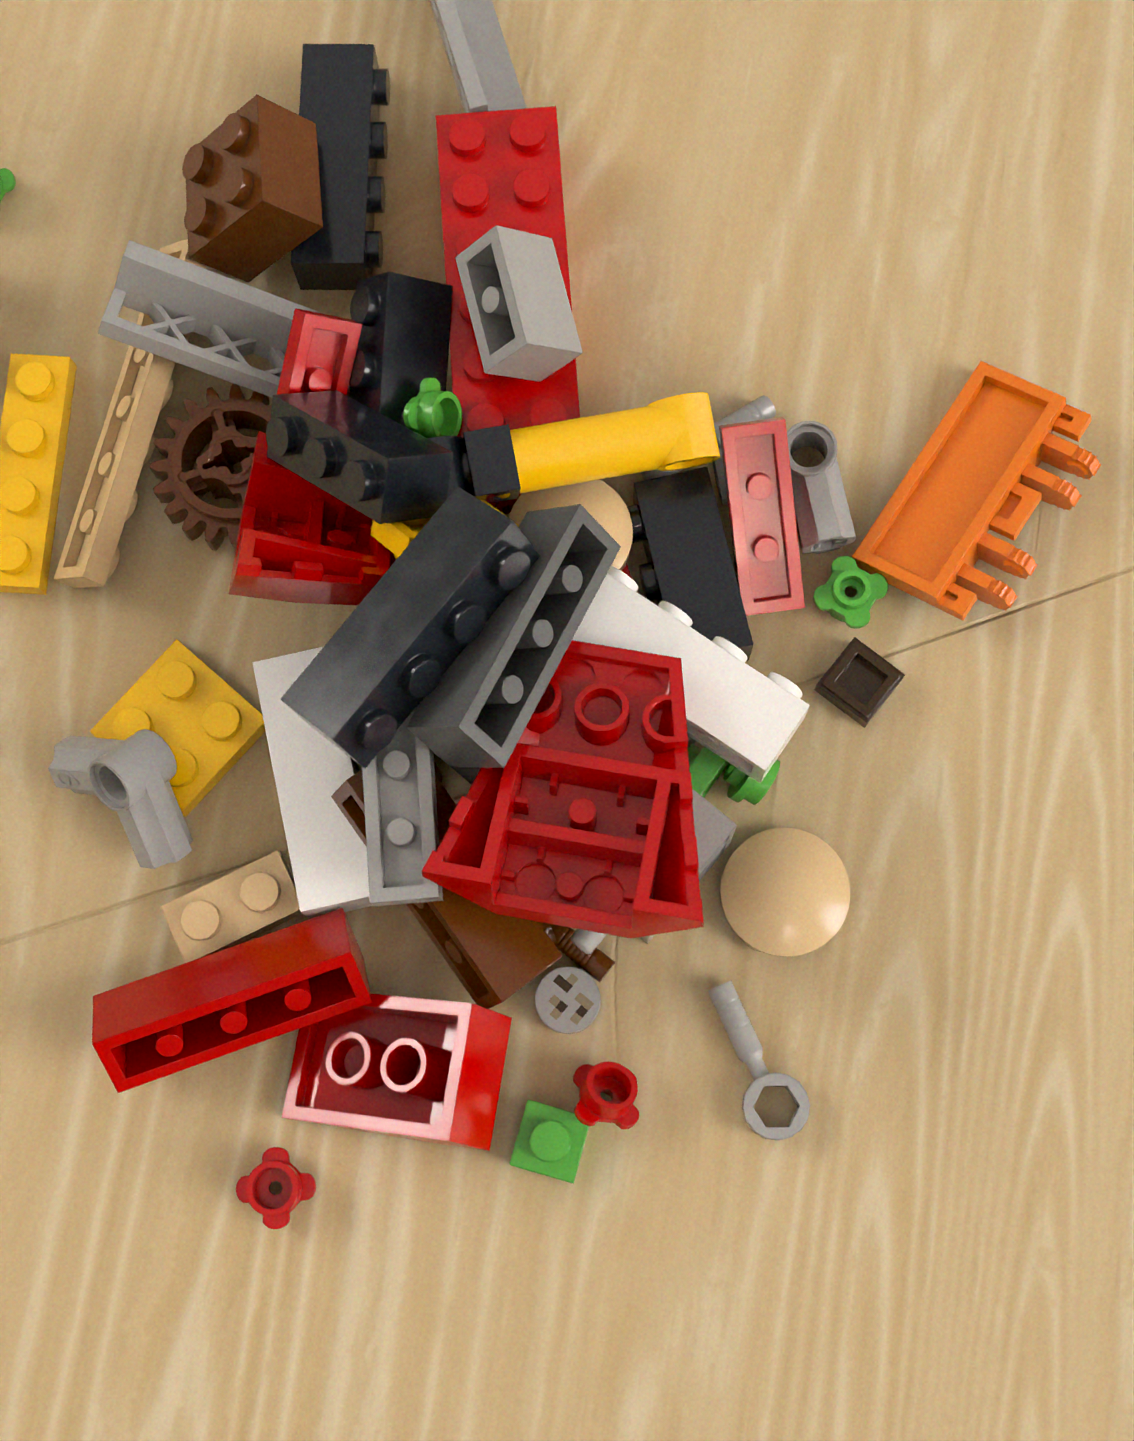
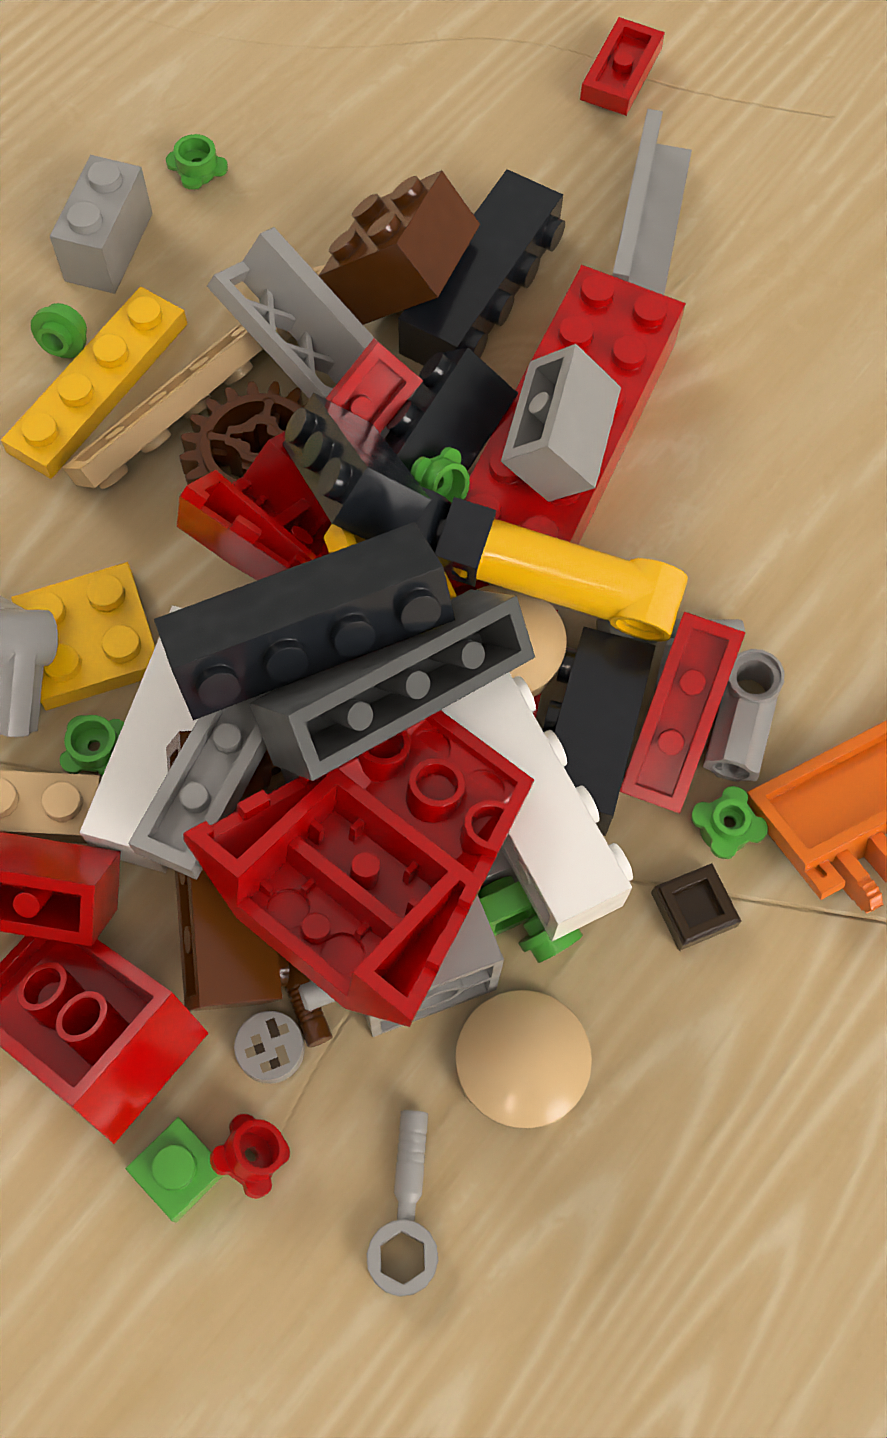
camera: 20 degrees right, 10 degrees down
(236, 821) = (80, 734): none -> bright green plate

